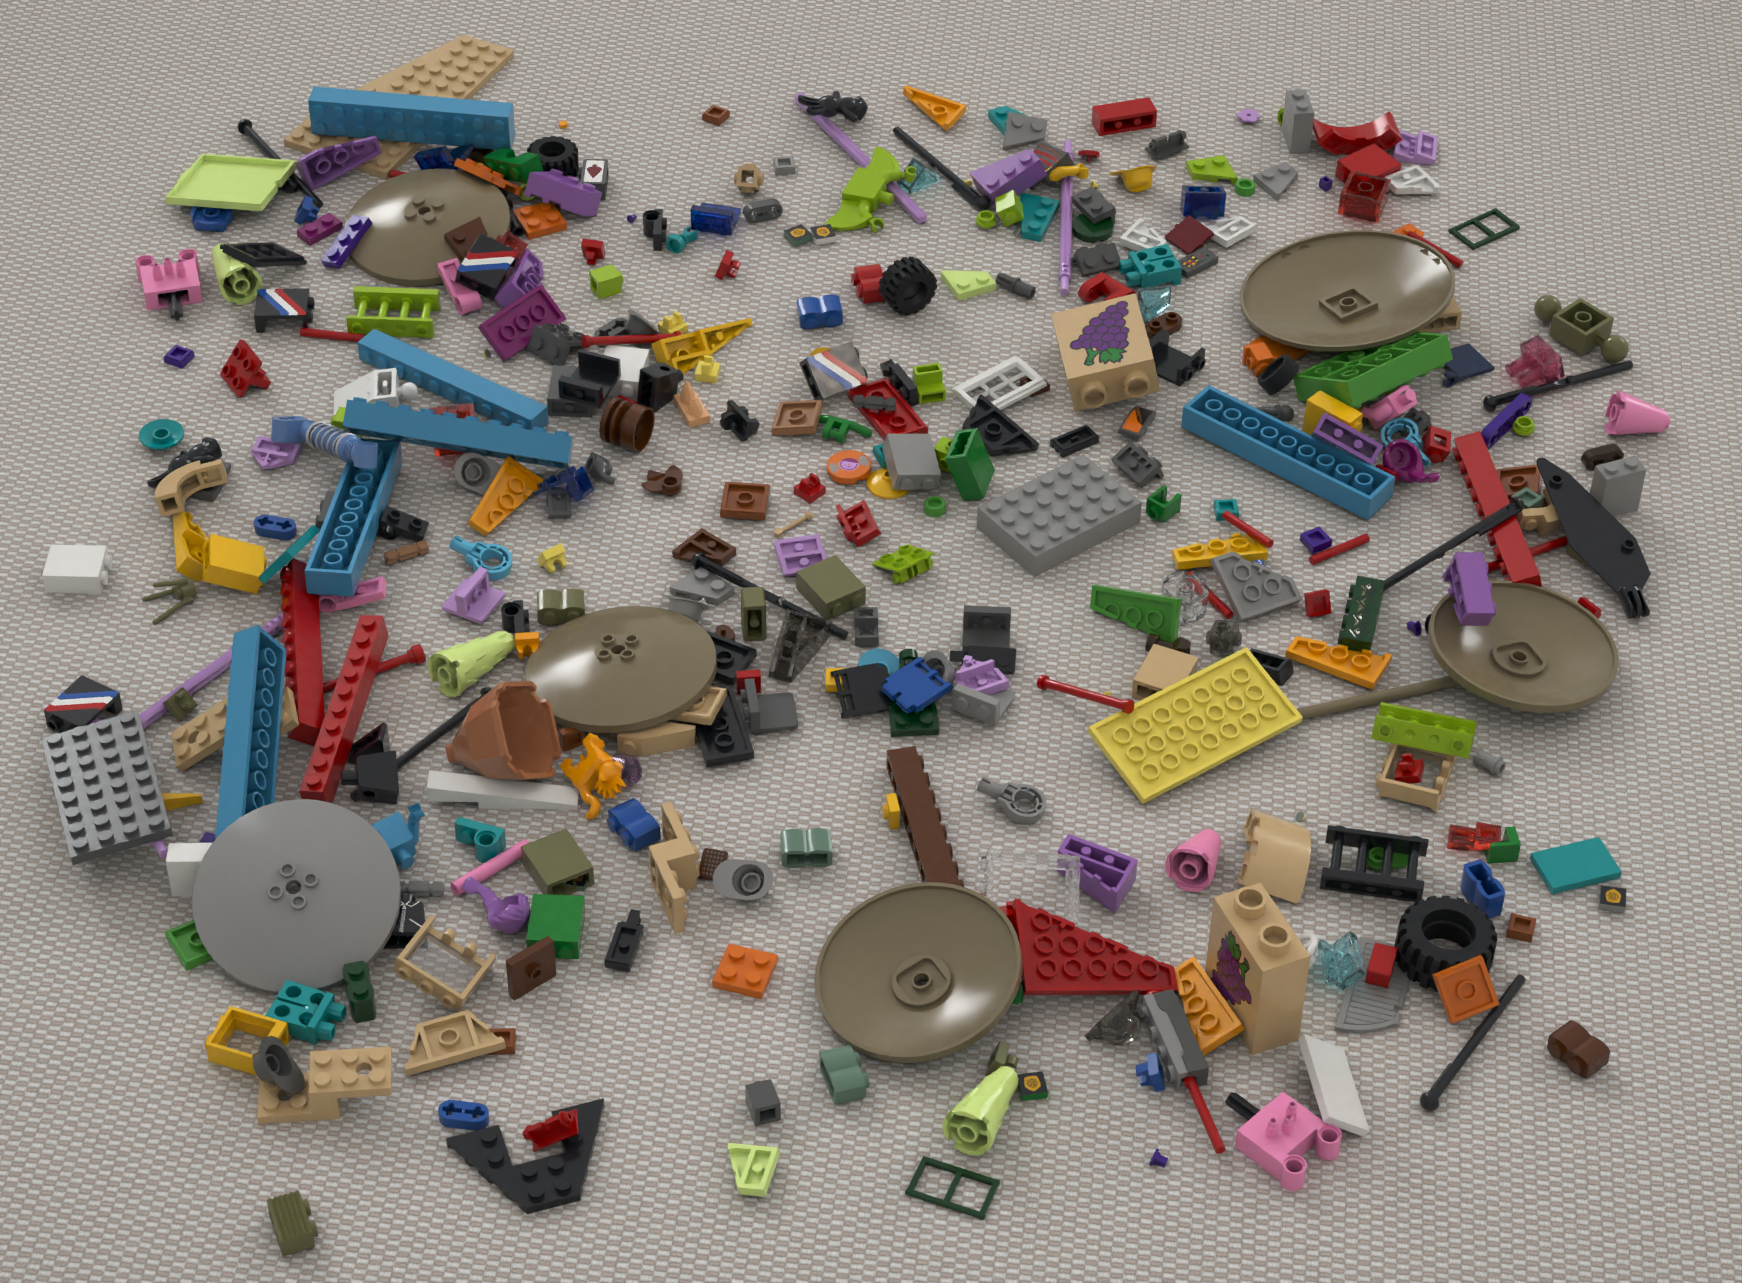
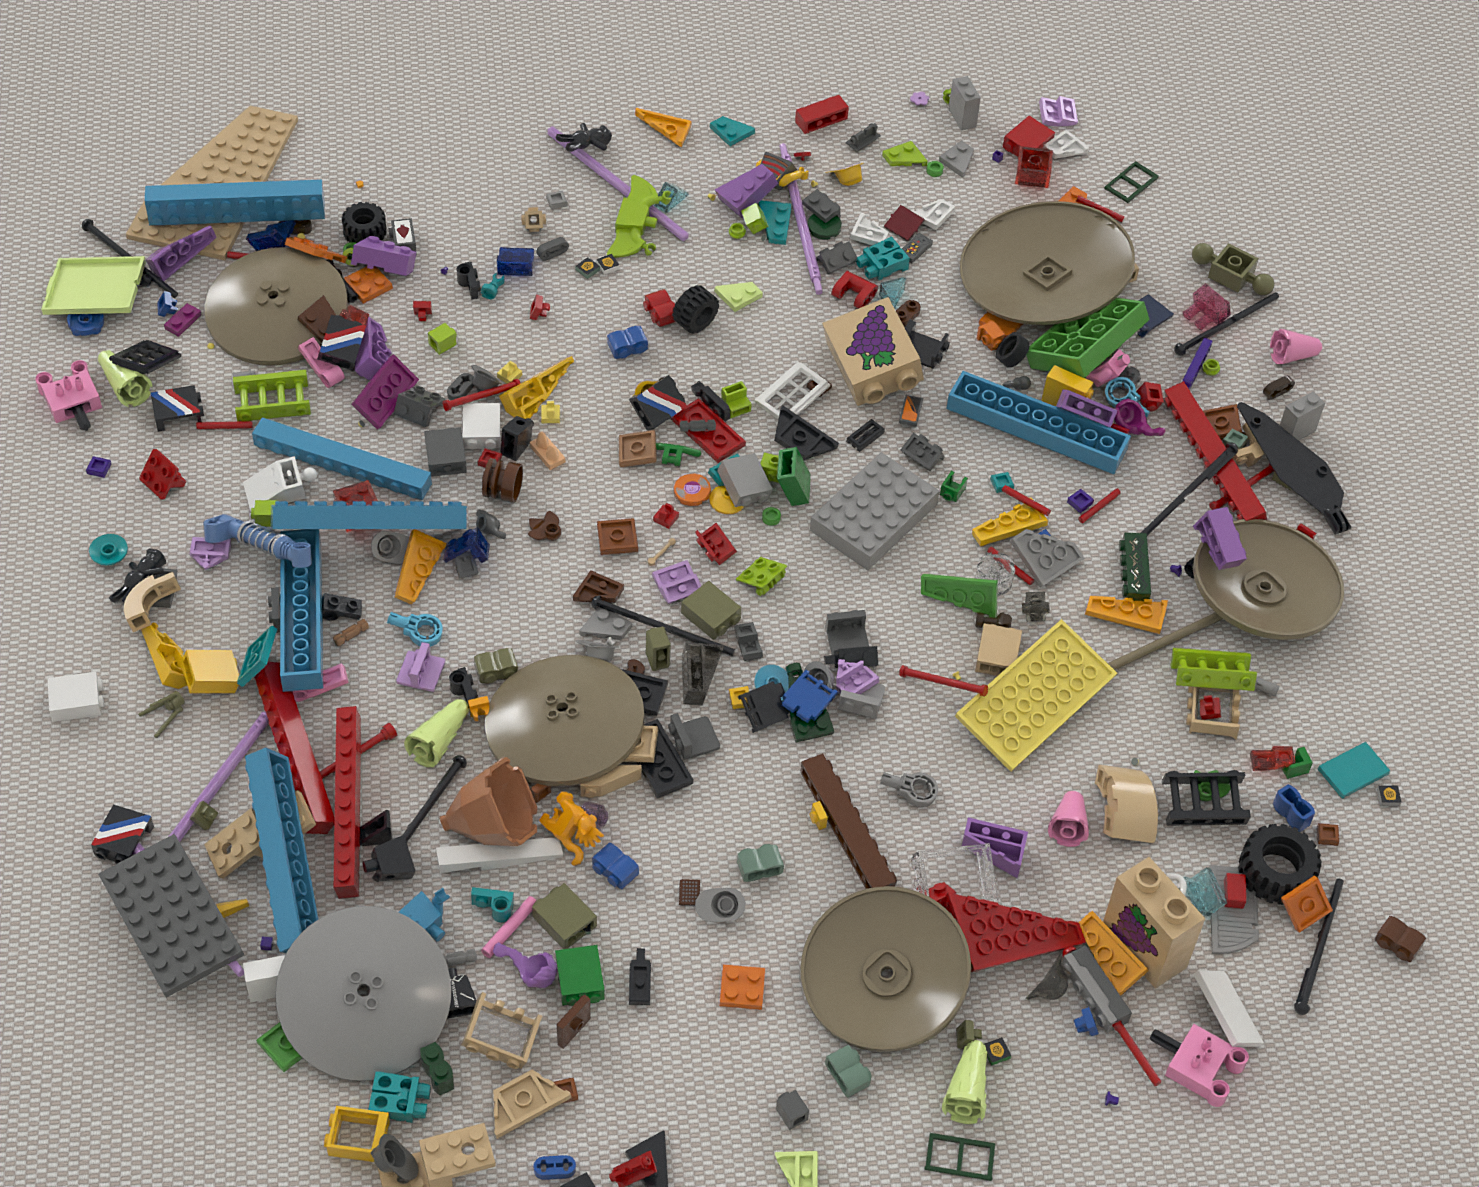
camera: 15 degrees left, 10 degrees up
(275, 527) = (232, 625): blue beam -> none
(346, 241) = (211, 331): dark purple plate -> none
(512, 167) = (341, 238): green arch -> none
(552, 555) = (474, 617): light yellow tile -> none
(591, 379) = (461, 442): black panel -> none
(673, 866) = (661, 903): tan bracket -> none
(716, 115) = (486, 157): dark orange tile -> none
(737, 420) = (588, 458): black hips -> none
(748, 674) = (667, 710): red tile -> none
(980, 202) = (727, 214): black bar -> none
(1016, 285) = (778, 291): dark grey axle -> none
(1023, 130) = (744, 138): light grey wing -> none
(1203, 201) = (907, 189): clear blue brick -> none
(1277, 667) = (1085, 627): black slope -> none
(1317, 603) = (1097, 561): red tile -> none
(1352, 139) = (1013, 108): red panel -> none

